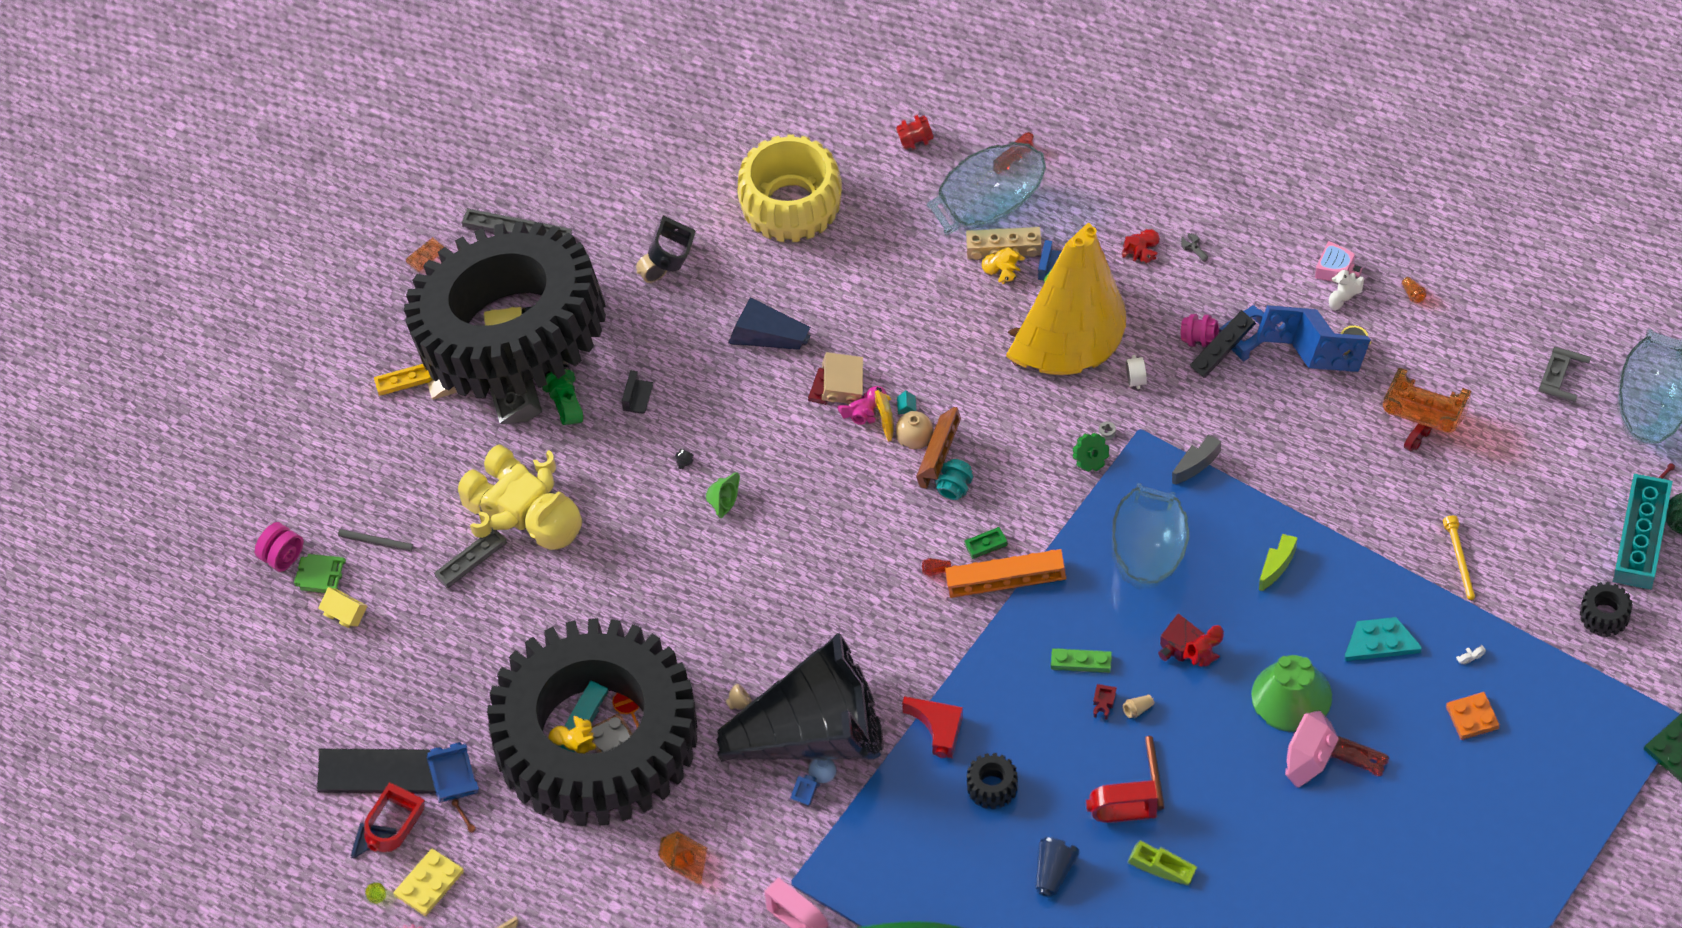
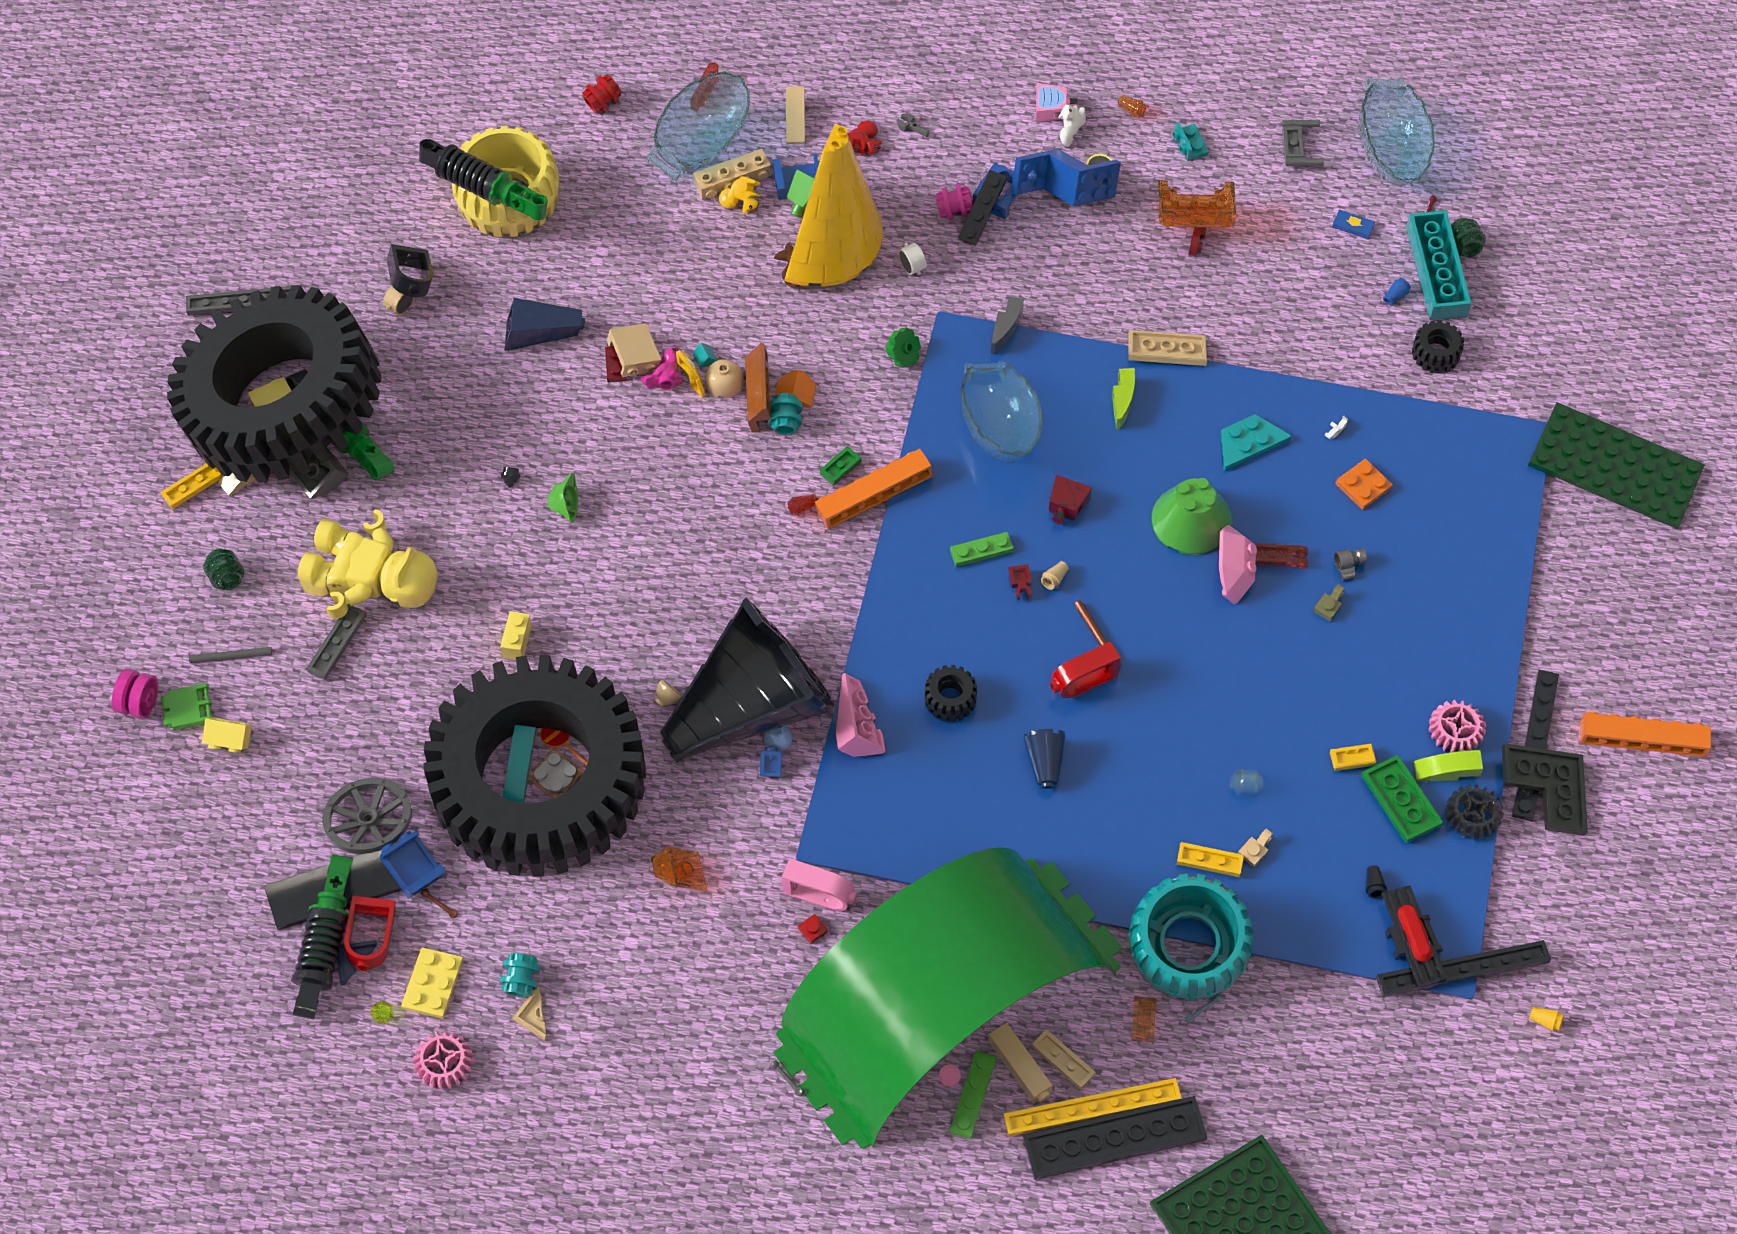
camera: 25 degrees left, 5 degrees up
(349, 811) = (322, 939): none -> black piece
(399, 462) = (223, 569): none -> clear green piece
(426, 252) = (161, 354): clear orange tile -> none
(432, 720) = (367, 818): none -> dark grey wheel
(504, 900) = (520, 975): none -> teal piece
(577, 739) = (528, 788): yellow animal -> none
(627, 602) = (516, 635): none -> light yellow brick
(636, 394) = (436, 427): black panel -> none
(760, 179) = (481, 178): none -> black piece
(895, 779) = (855, 725): none -> bright pink wedge
(940, 719) = (873, 650): red arch -> none
(980, 458) = (799, 384): none -> orange slope
(1086, 203) = (795, 115): none -> tan slope
(1109, 425) = (911, 318): light grey bush -> none
(1161, 863) = (1144, 719): lime slope -> none
(1201, 648) = (1092, 501): red animal -> none
(1342, 529) = (1167, 347): none -> tan tile
(1386, 818) = (1329, 605): none -> olive plate
(1420, 781) = (1346, 560): none -> flat silver piece
(1452, 524) = (1264, 312): yellow piece -> none
(1455, 340) = (1190, 141): none -> teal bracket
(1580, 467) = (1353, 224): none -> blue tile
(1591, 544) = (1397, 291): none -> blue cone

